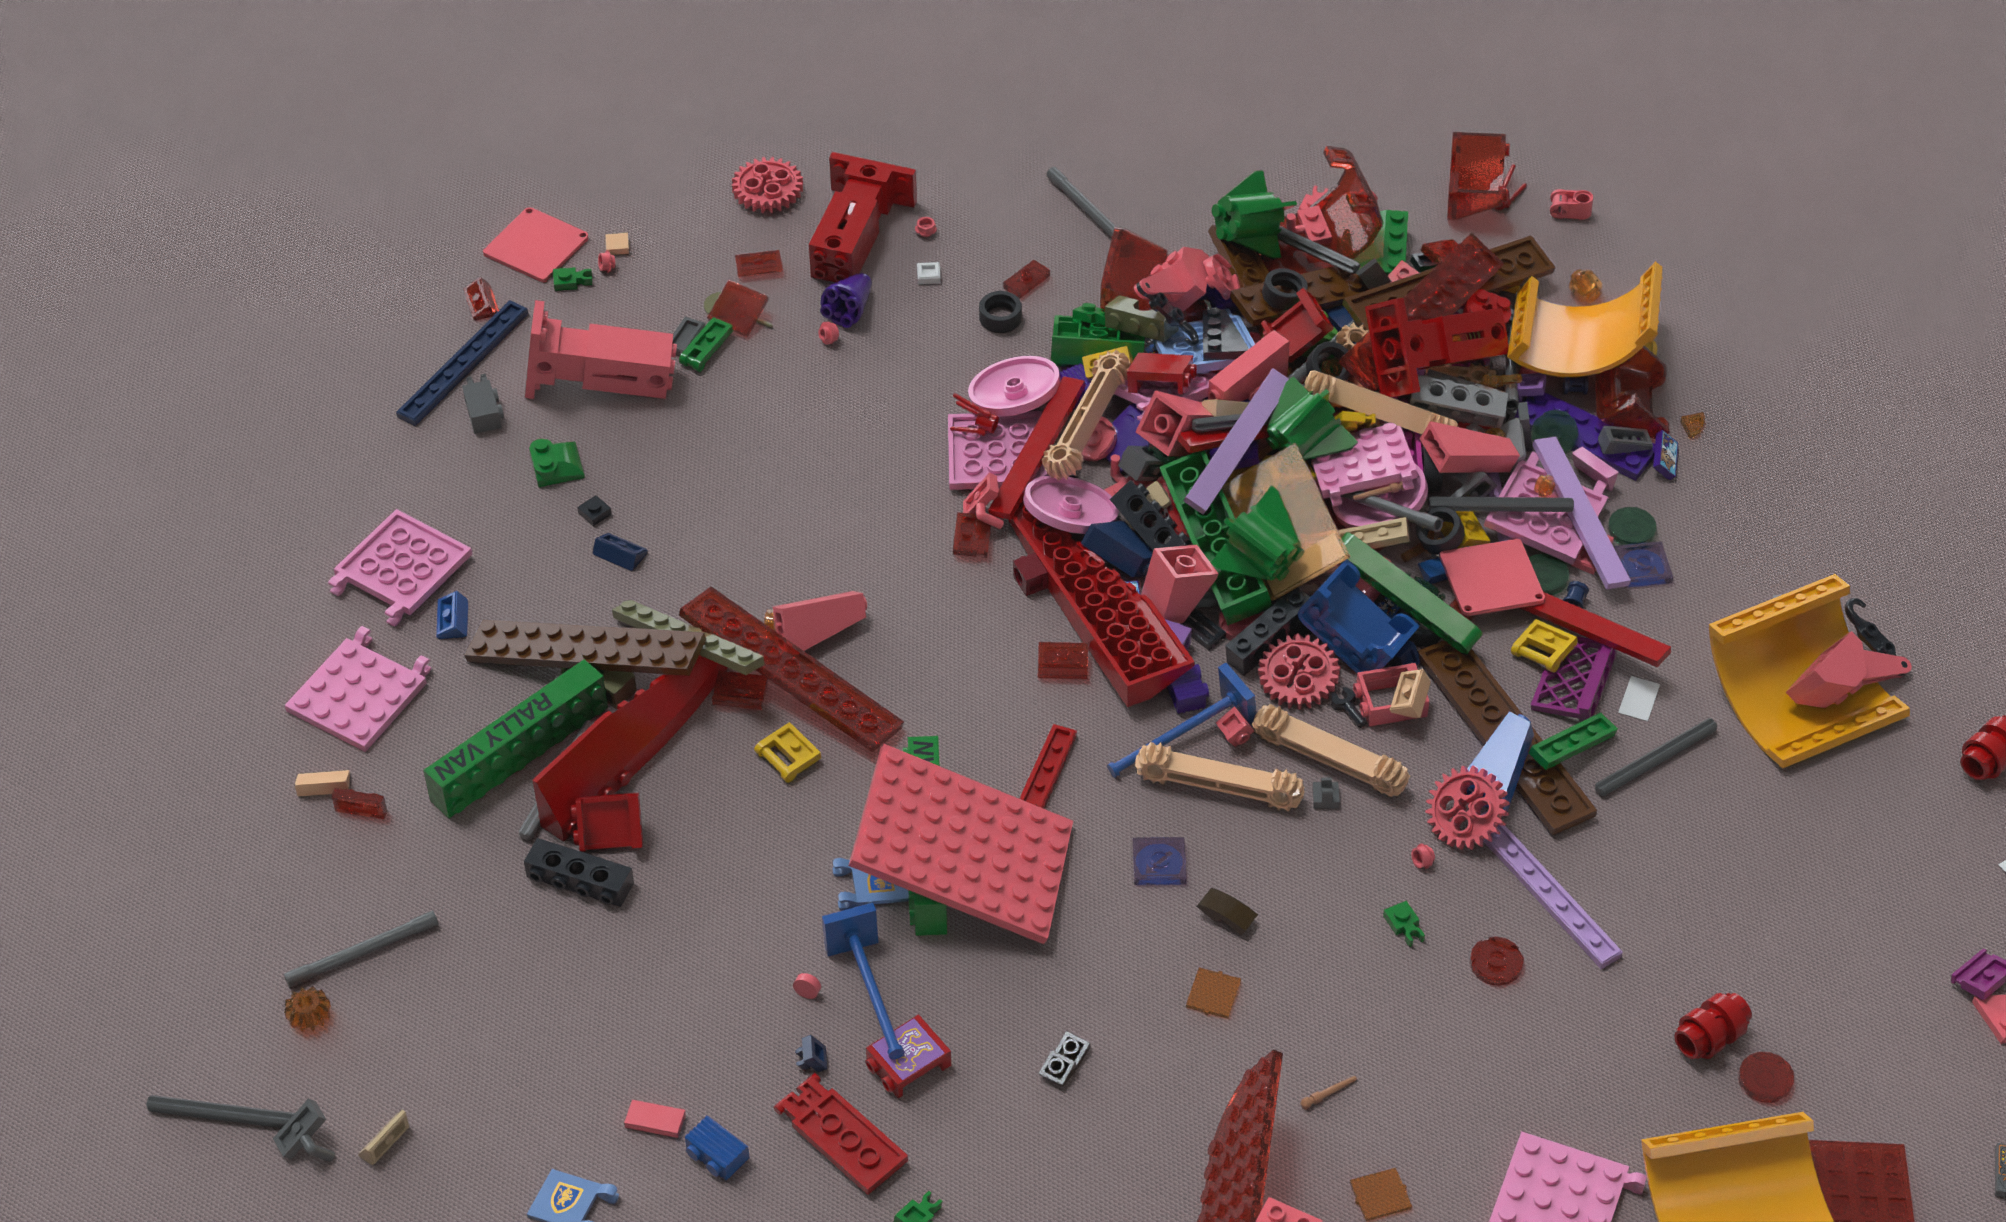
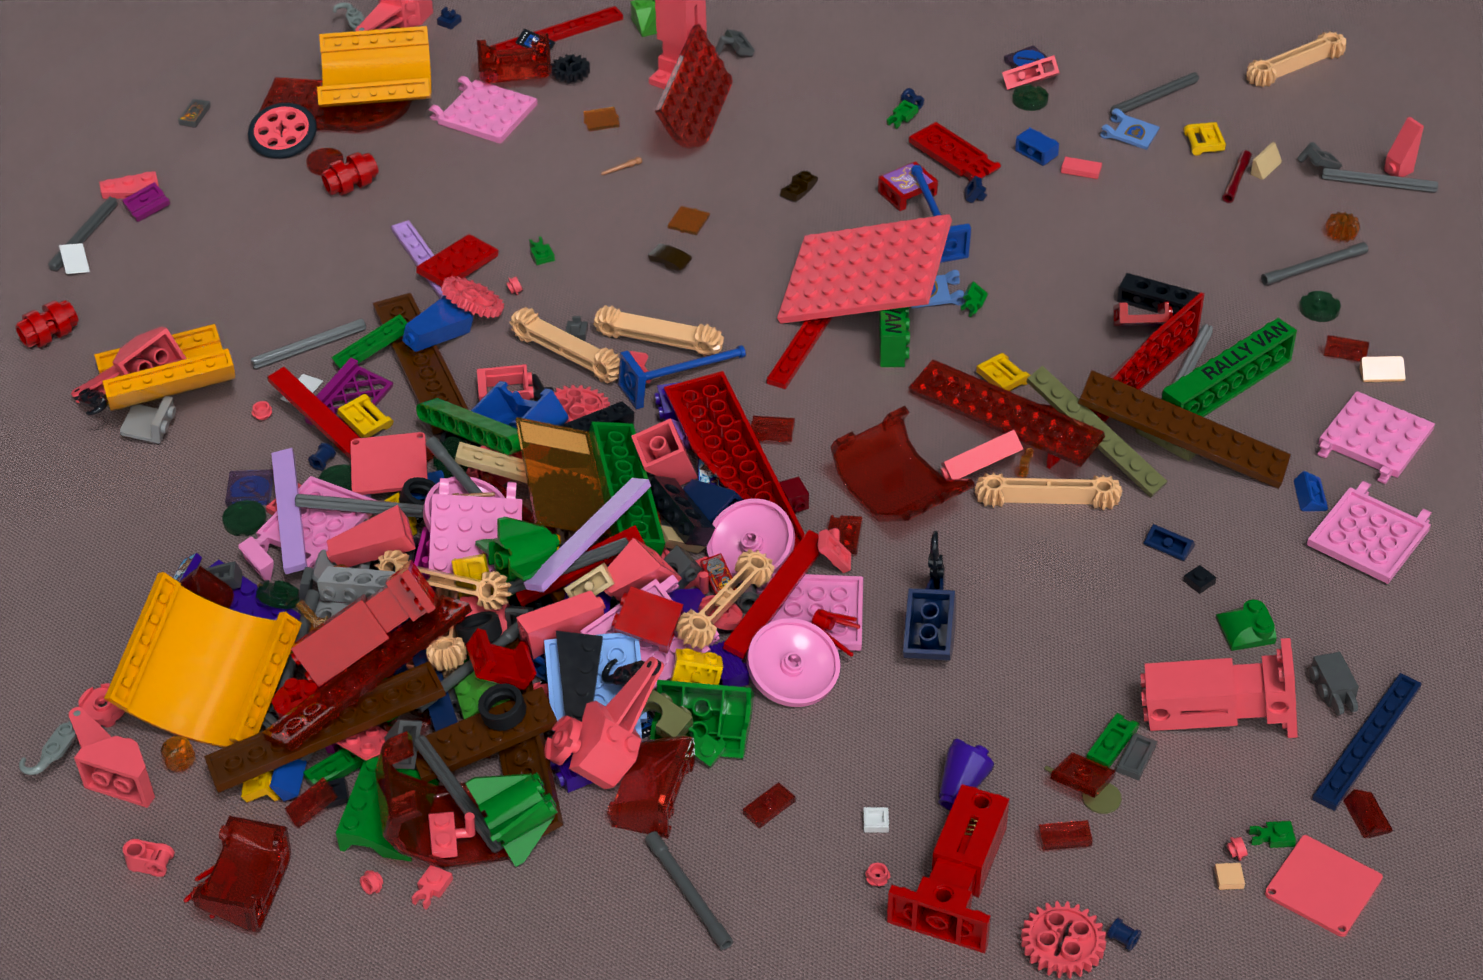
camera: 175 degrees left, 5 degrees down
(184, 1129) = (1404, 151): none -> coral slope
(372, 881) = (1320, 306): none -> clear green tile
(419, 1133) = (1232, 188): none -> dark red piece
(454, 1185) = (1210, 136): none -> yellow plate
(715, 192) = (1124, 934): none -> dark blue bush
(748, 592) = (998, 490): none -> light nougat arm
(807, 986) = (980, 226): coral tile -> none
(820, 862) = (974, 297): none -> green plate
(828, 332) = (984, 741): coral plate -> none
(876, 421) = (931, 614): none -> dark blue slope
(904, 575) = (889, 474): none -> clear red windscreen
(1000, 299) = (801, 746): black tyre -> none
(1100, 476) = (717, 571): none -> tile
(1159, 861) = (714, 295): clear purple tile -> none
(1261, 541) = (591, 433): green brick -> none
(1411, 693) = (491, 370): light nougat slope -> none
(1496, 961) = (484, 228): clear red tile -> none
(1509, 888) = (457, 260): none -> red plate
(1544, 485) = (313, 522): clear orange plate -> none
(1628, 253) = (104, 762): none -> coral slope
(1675, 659) = (261, 410): none -> coral plate
(1686, 338) = (103, 715): none -> coral plate
(1693, 423) = (134, 613): clear orange tile -> none
(1875, 1104) = (282, 150): none -> wedge

